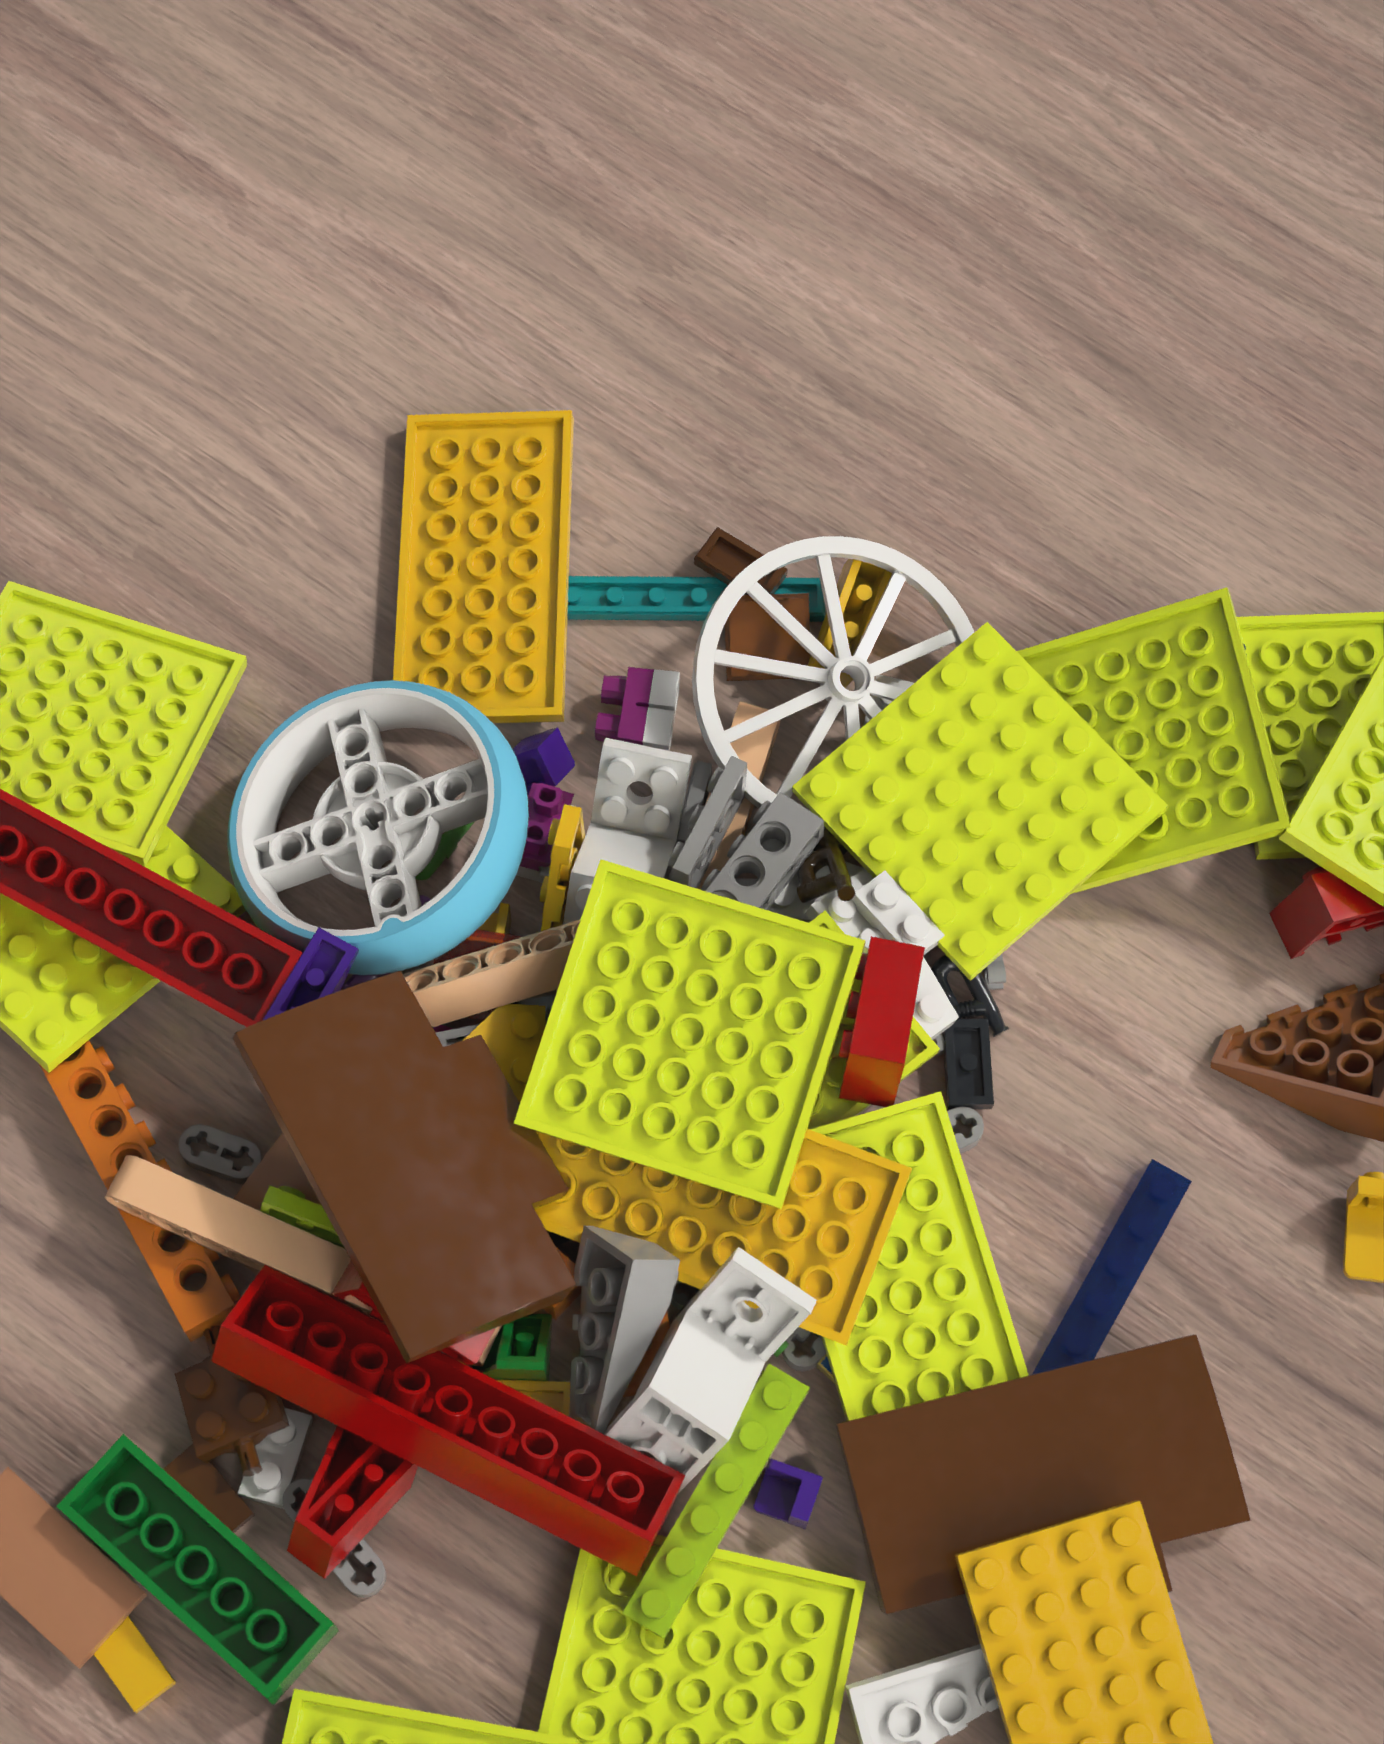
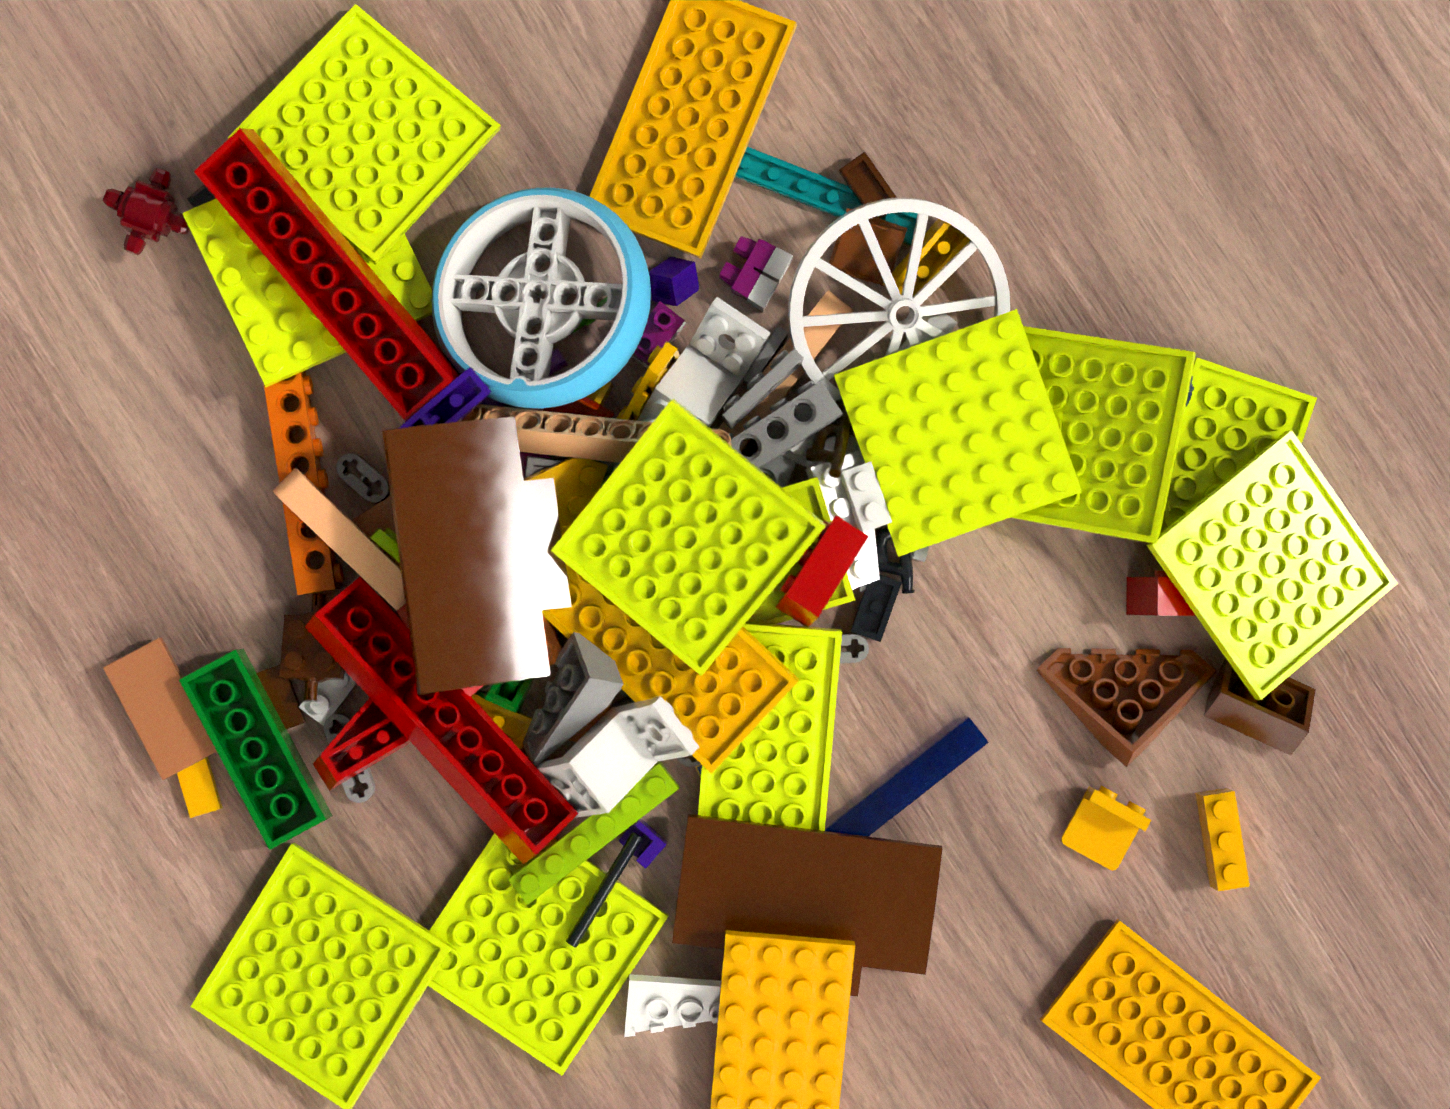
camera: 20 degrees right, 20 degrees up
(761, 1577) = (604, 889): none -> black bar

